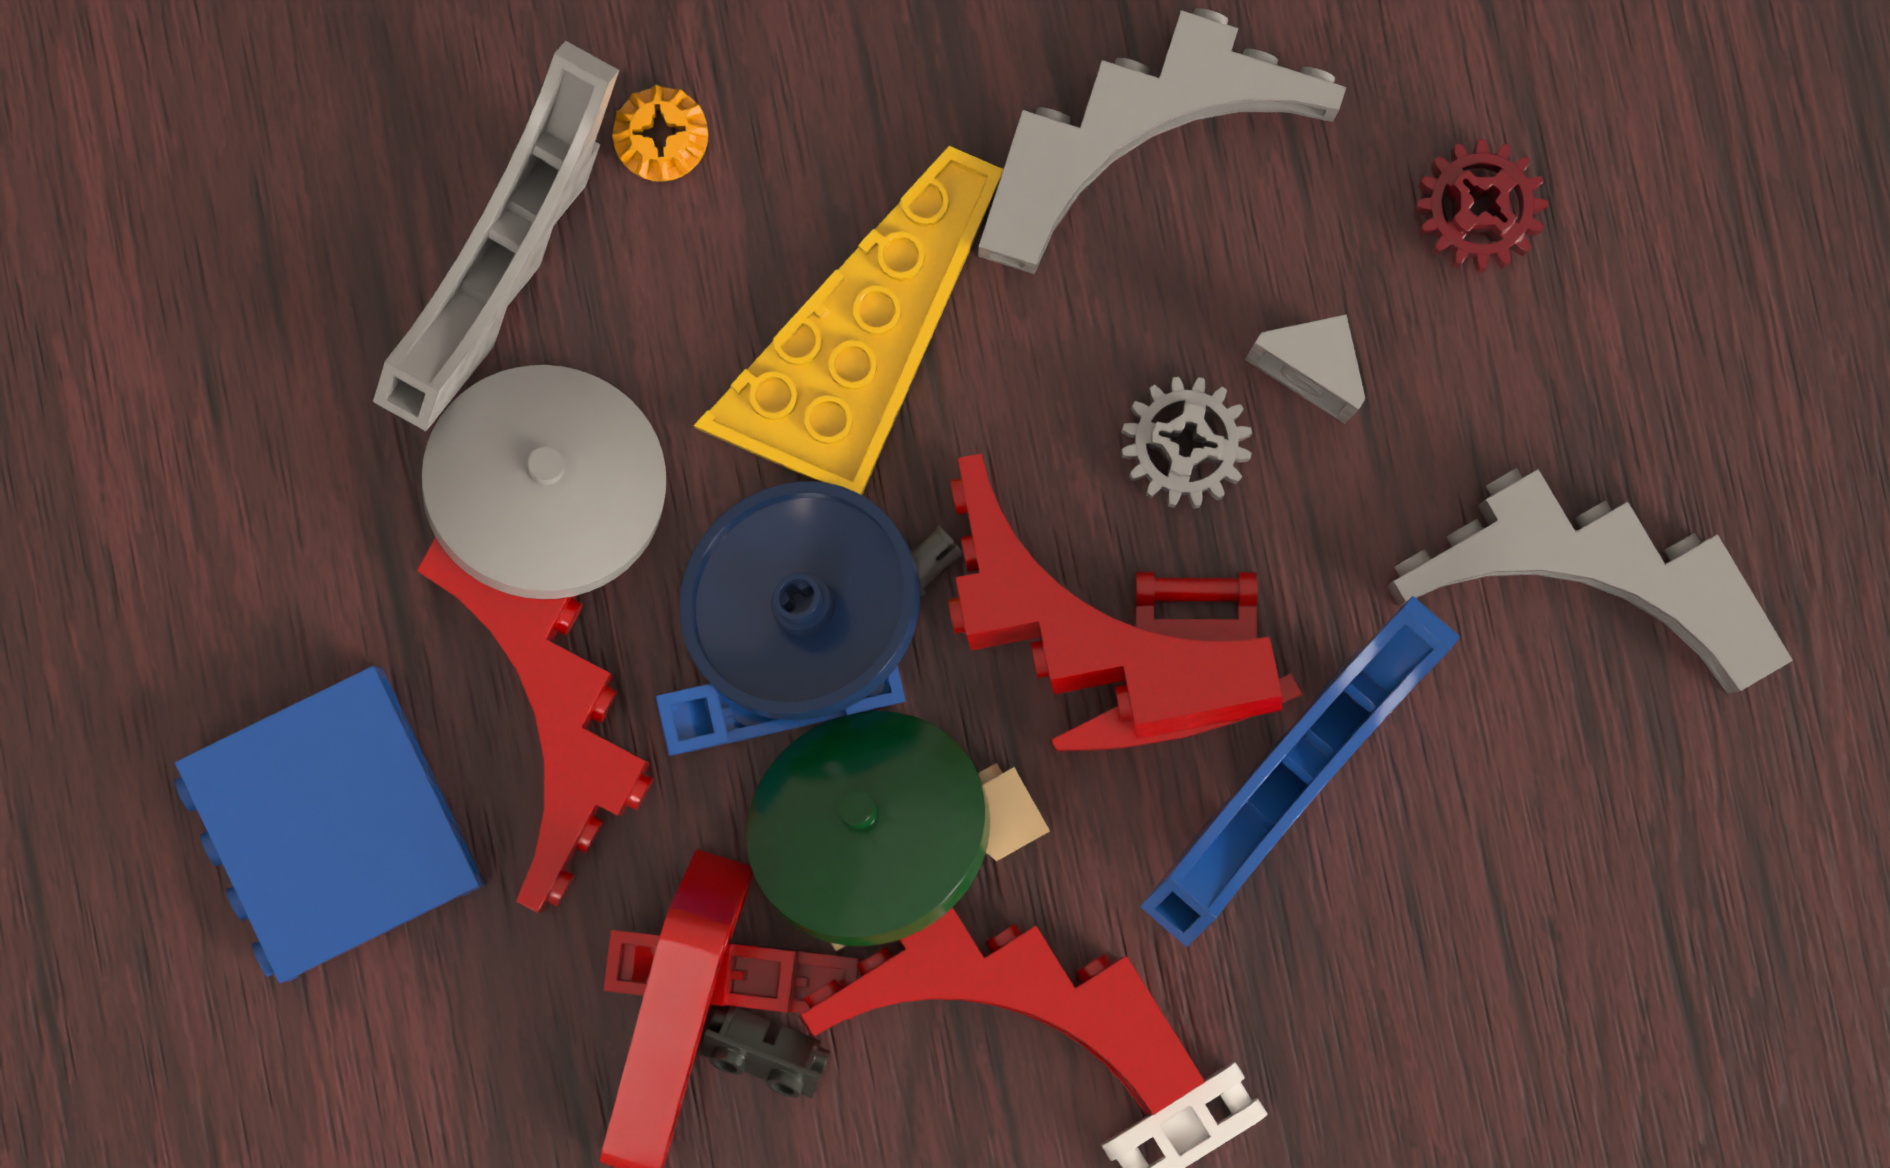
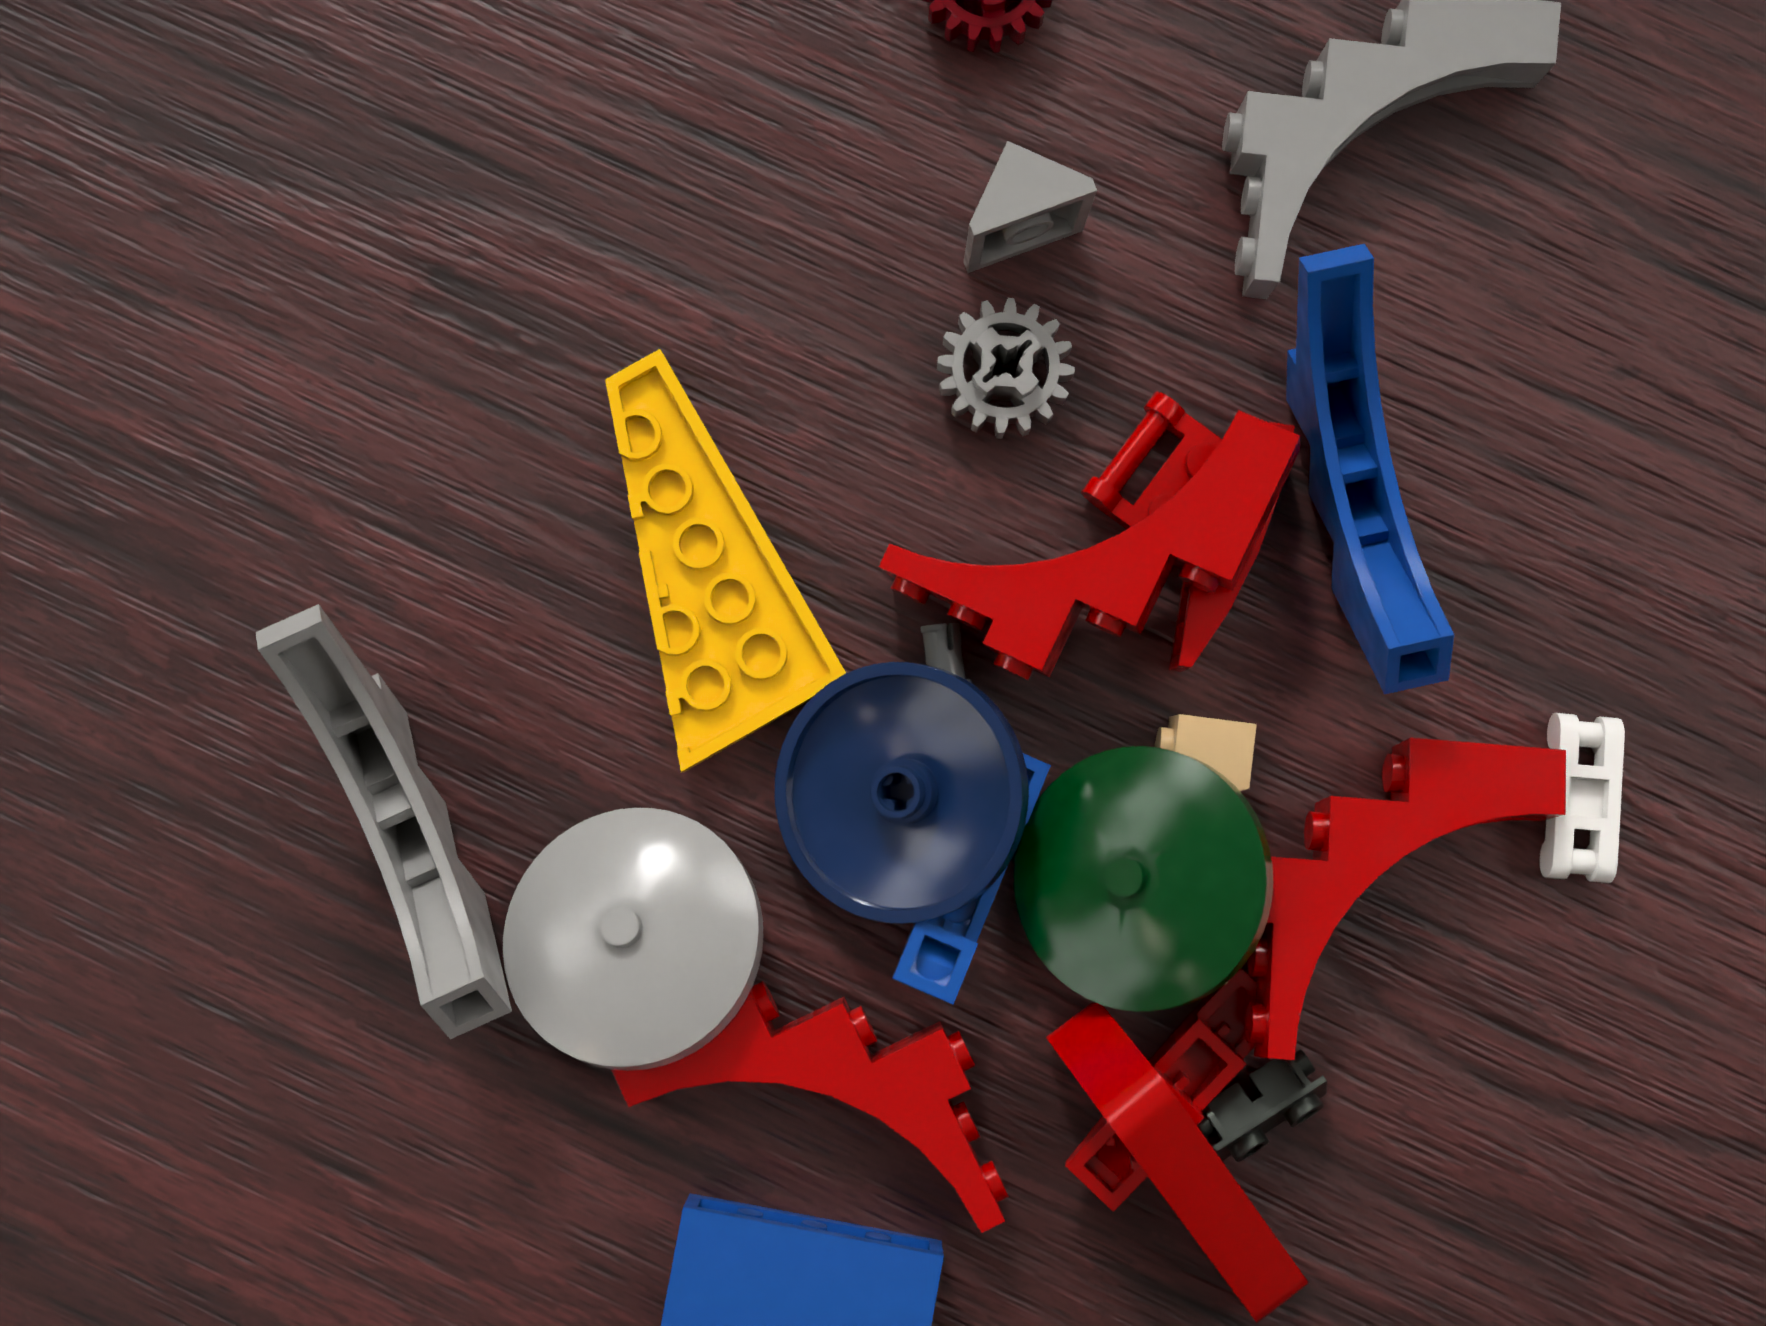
camera: 55 degrees left, 0 degrees up
(681, 150) = (437, 607): light orange gear -> none
(1127, 106) = (684, 209): light grey arch -> none

